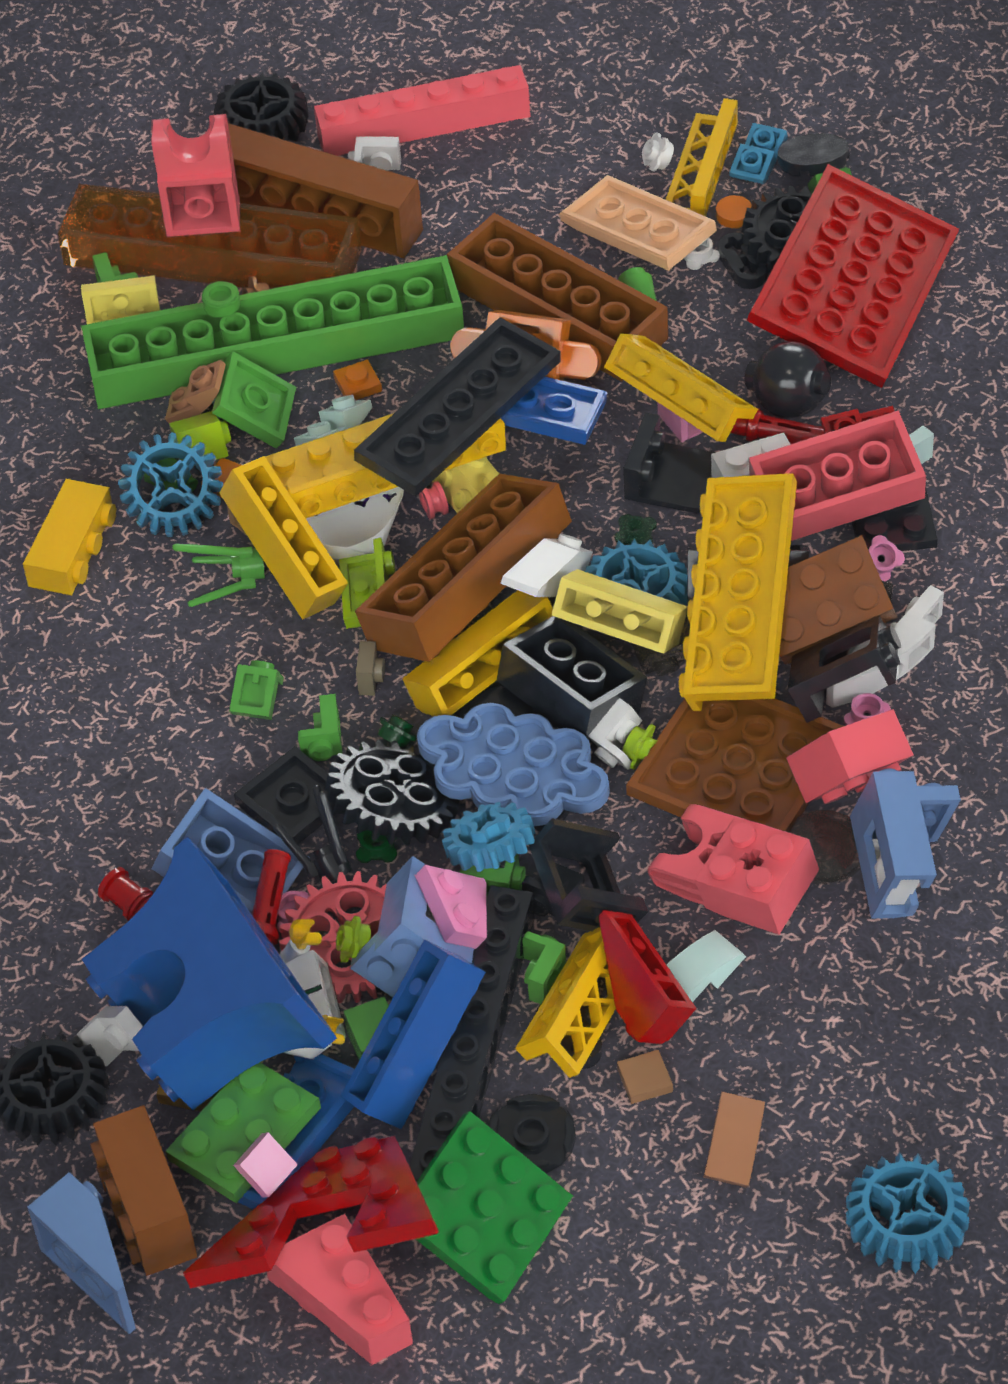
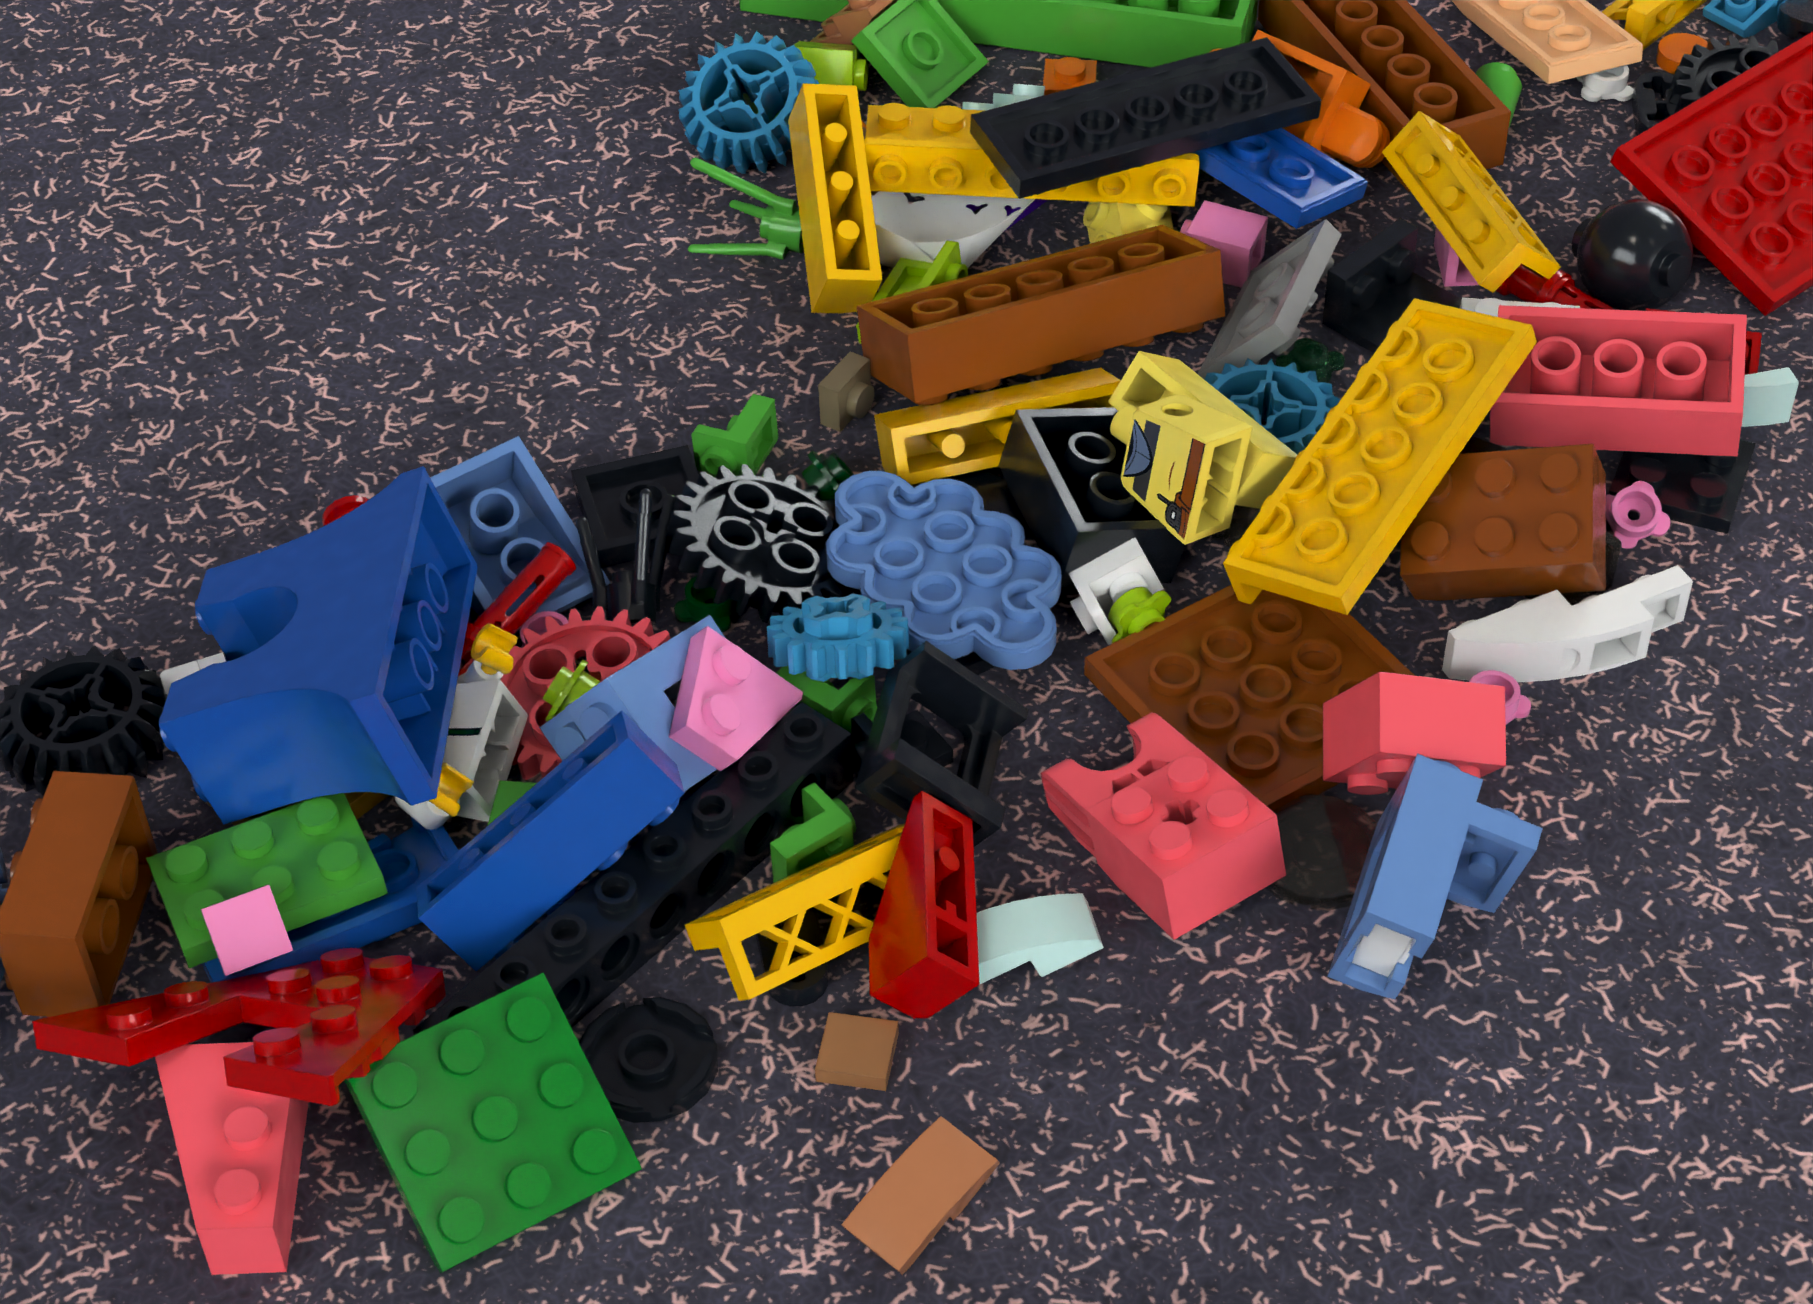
camera: 25 degrees right, 5 degrees down
(69, 537) = (596, 123): yellow brick -> none
(255, 690) = (690, 365): bright green bracket -> none
(434, 500) = (1067, 231): coral bush -> none
(536, 461) = (1235, 233): none -> bright pink brick
(545, 564) = (1116, 341): white slope -> none
(597, 497) = (1274, 301): none -> light grey plate
(627, 640) = (1183, 463): none -> light yellow torso
(810, 678) = (1418, 621): black window -> none

